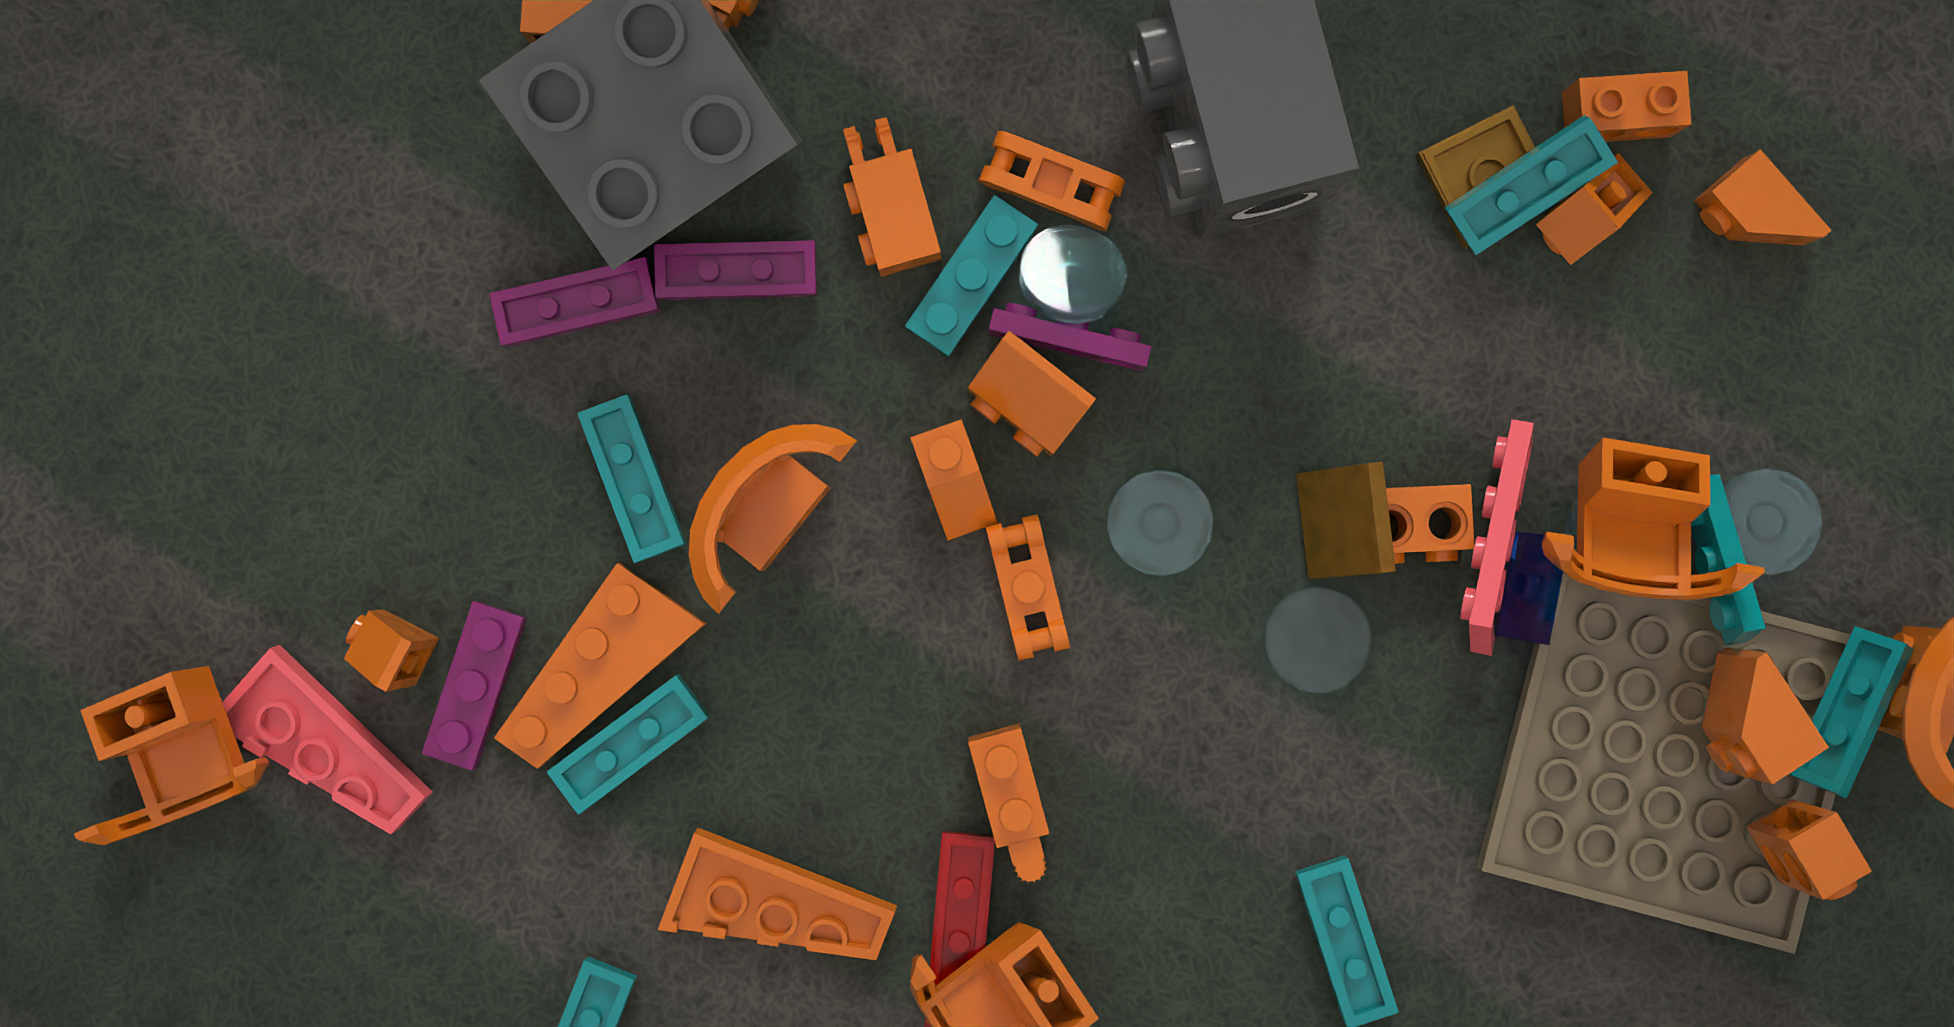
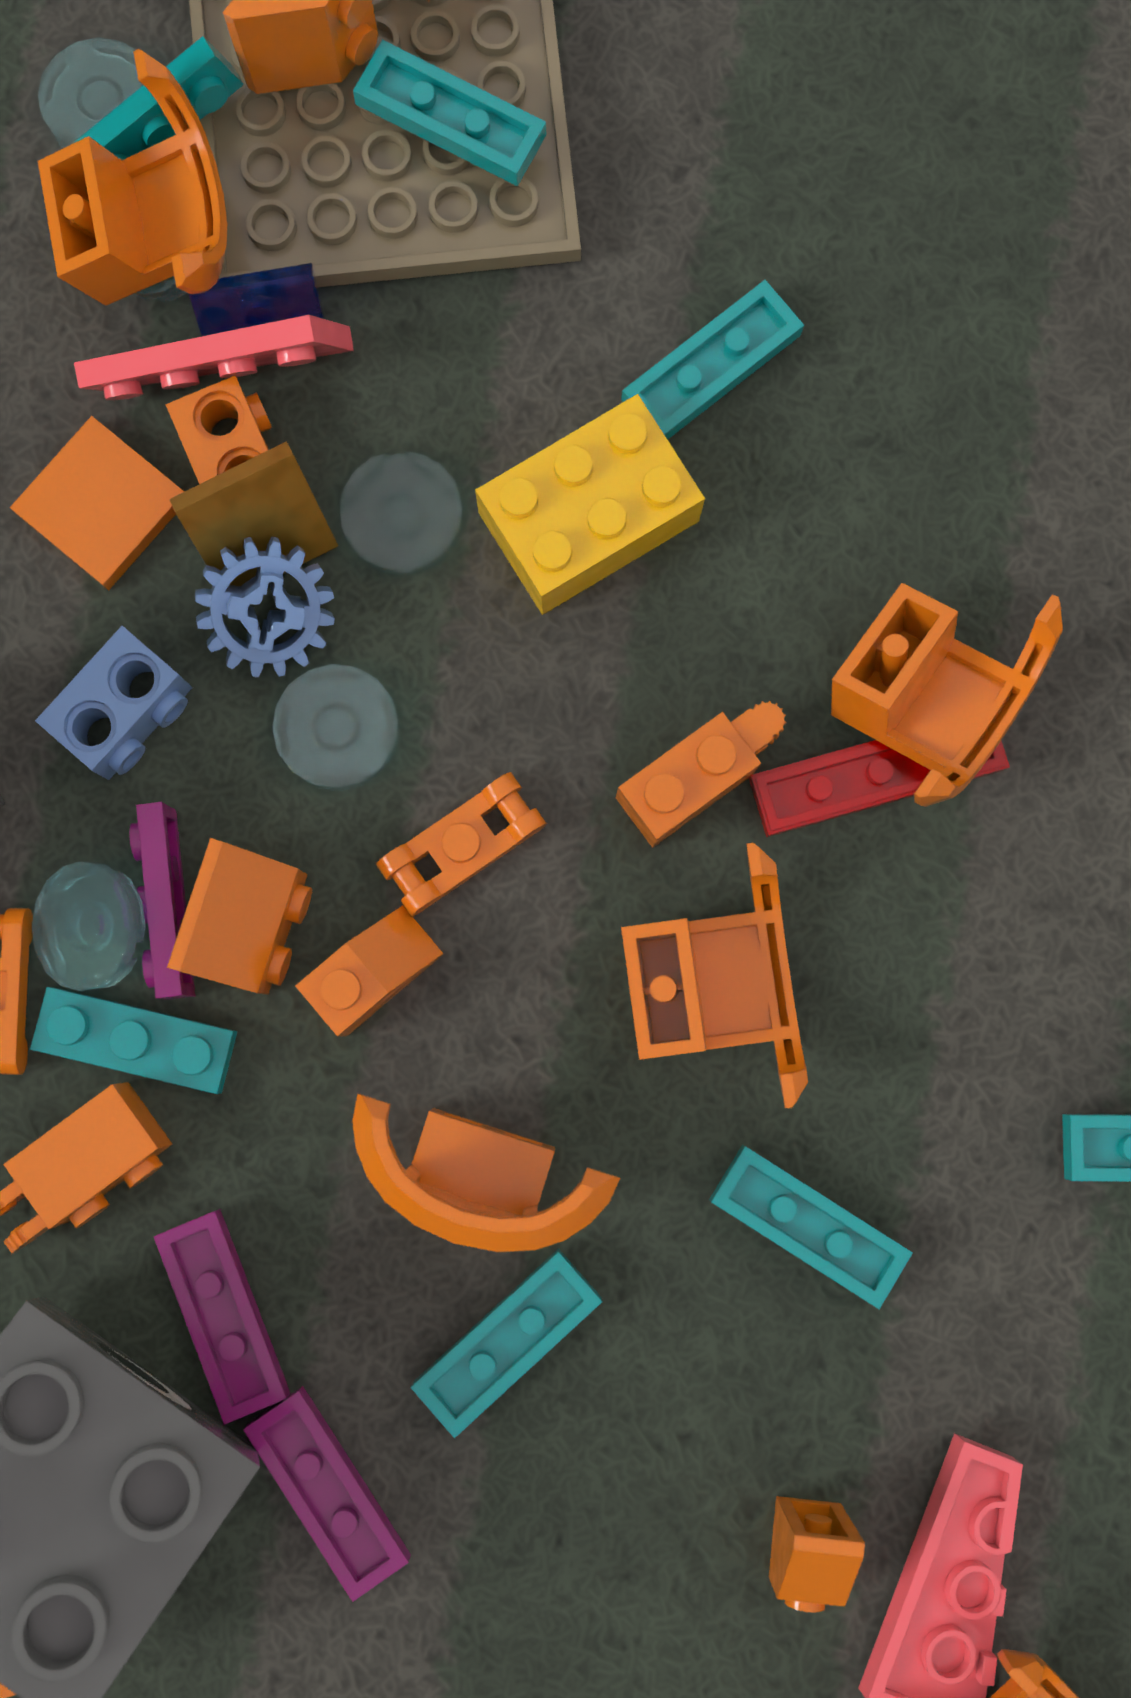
camera: 115 degrees left, 5 degrees down
(474, 685) = (814, 1433): magenta plate -> none
(605, 654) = (720, 1295): orange wing -> none
(758, 897) = (920, 1007): orange wing -> none
(839, 747) = (718, 982): none -> orange piece
(1254, 350) = (103, 692): none -> medium blue brick
(1254, 512) = (236, 602): none -> medium blue gear
(1262, 795) = (590, 504): none -> yellow brick
(1416, 400) = (98, 502): none -> orange tile
(1635, 806) = (450, 112): none -> teal plate

